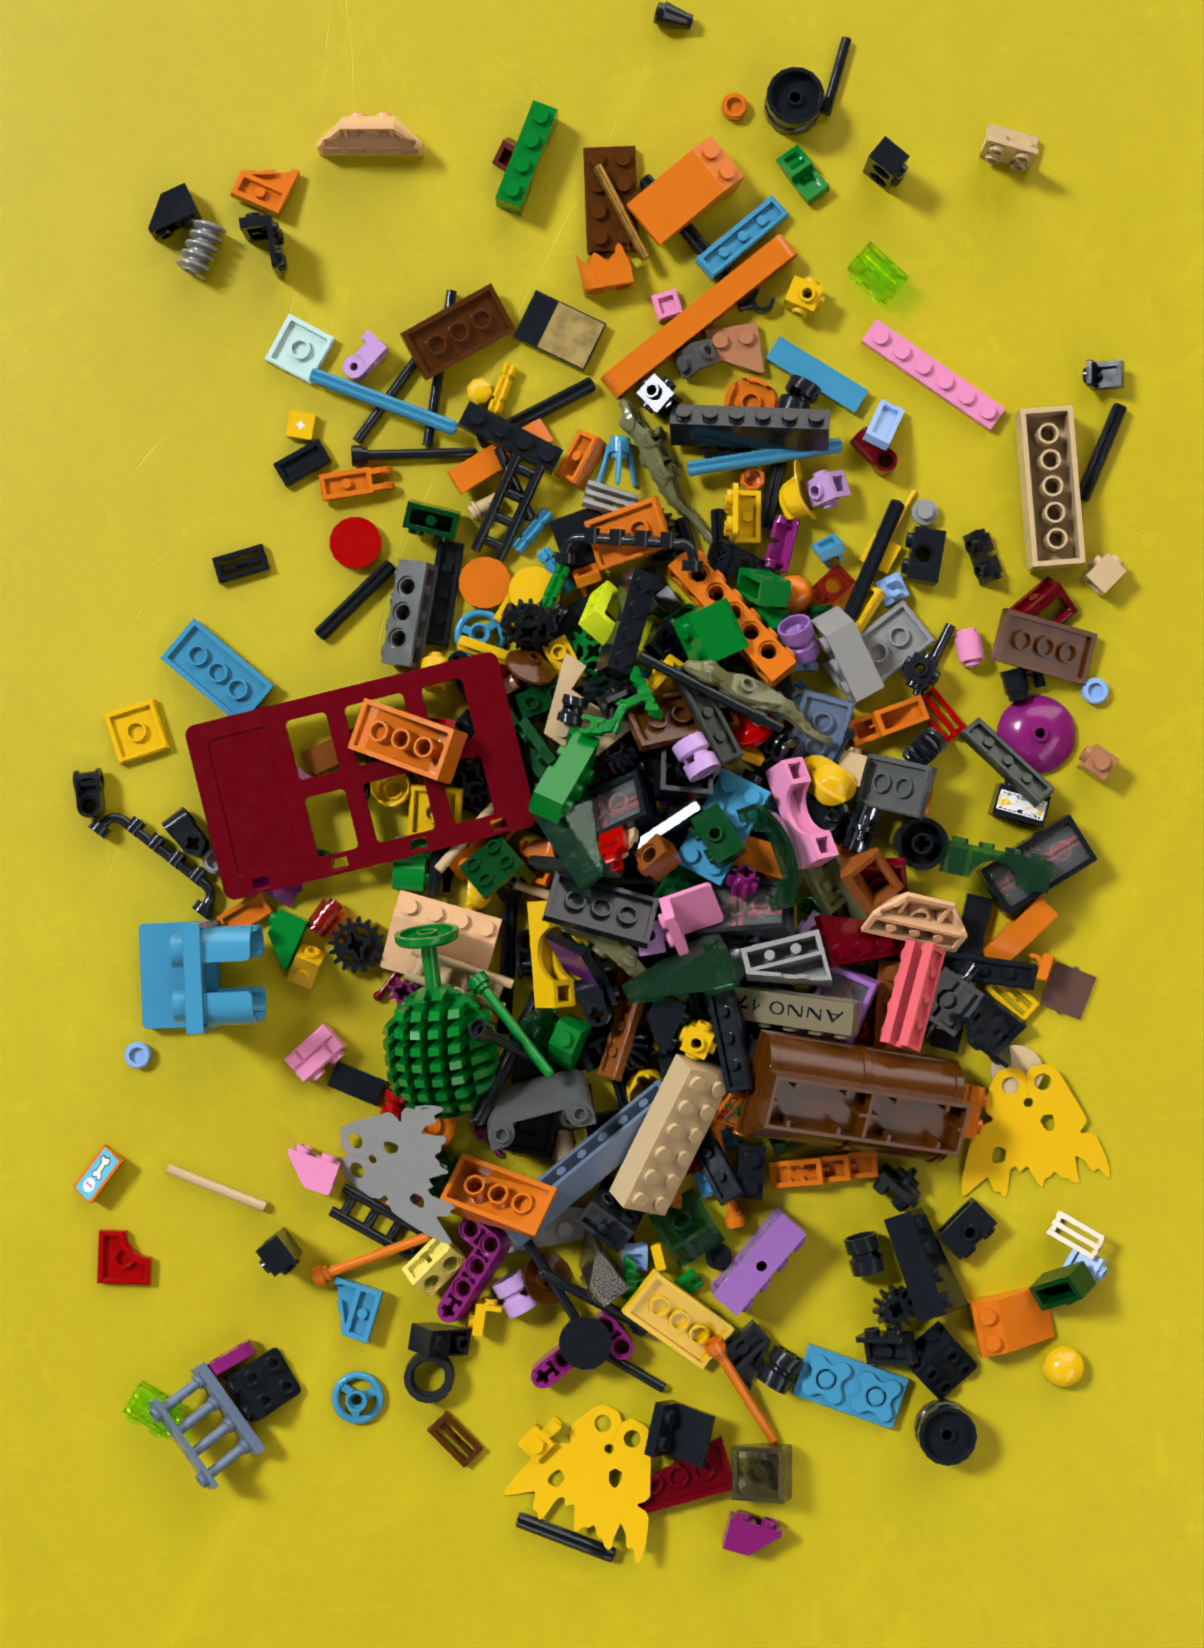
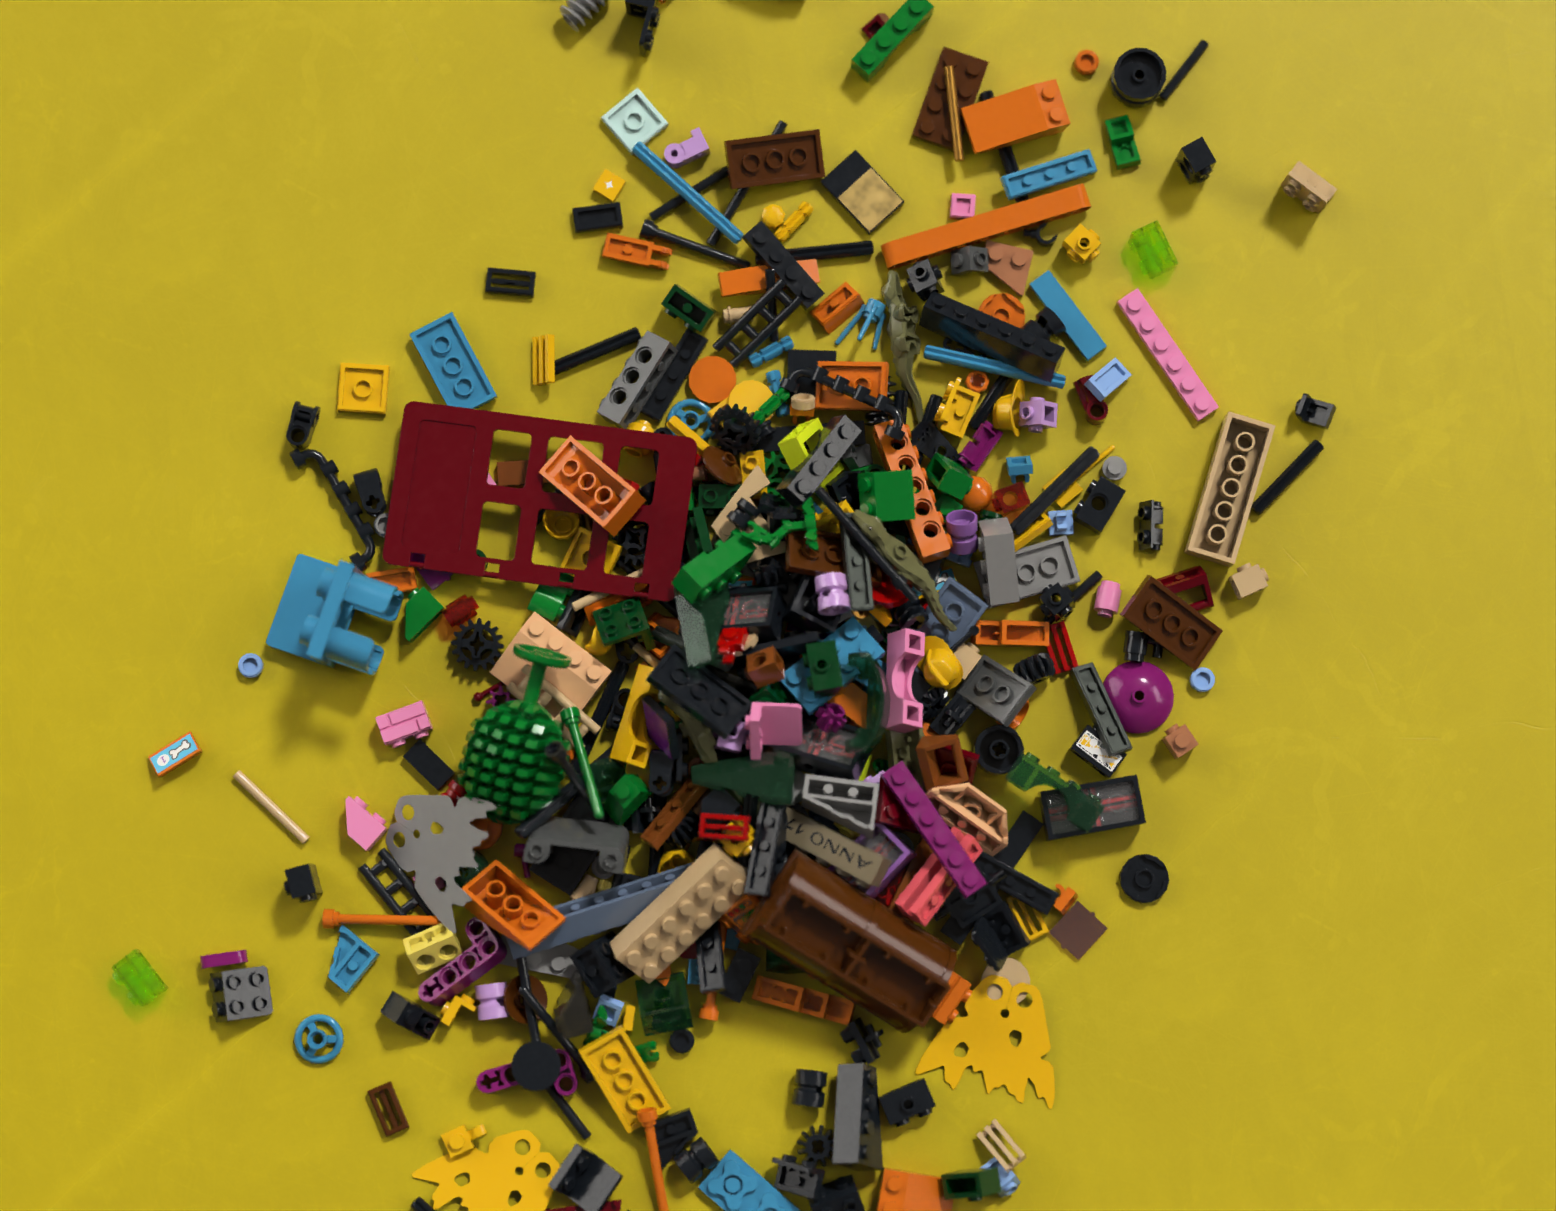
camera: 20 degrees right, 5 degrees down
(120, 1261) = (161, 837): red tile -> none
(232, 1422) = (202, 1014): sand blue fence -> none
(306, 630) = (543, 359): none -> yellow tile
(306, 966) = (426, 646): yellow bracket -> none
(355, 543) = (615, 302): red tile -> none
(433, 1396) = (383, 1062): black tyre -> none
(585, 569) = (803, 401): none -> tan tile
(606, 275) = (920, 160): orange piece -> none
(609, 495) = (848, 347): light grey tile -> none
(701, 1029) = (745, 828): none -> red tile
(771, 1246) = (698, 1064): medium lavender brick -> none
(891, 953) = (933, 829): none -> magenta plate
(1020, 930) = (1056, 860): orange slope -> none
(1113, 913) = (1144, 878): none -> black tile

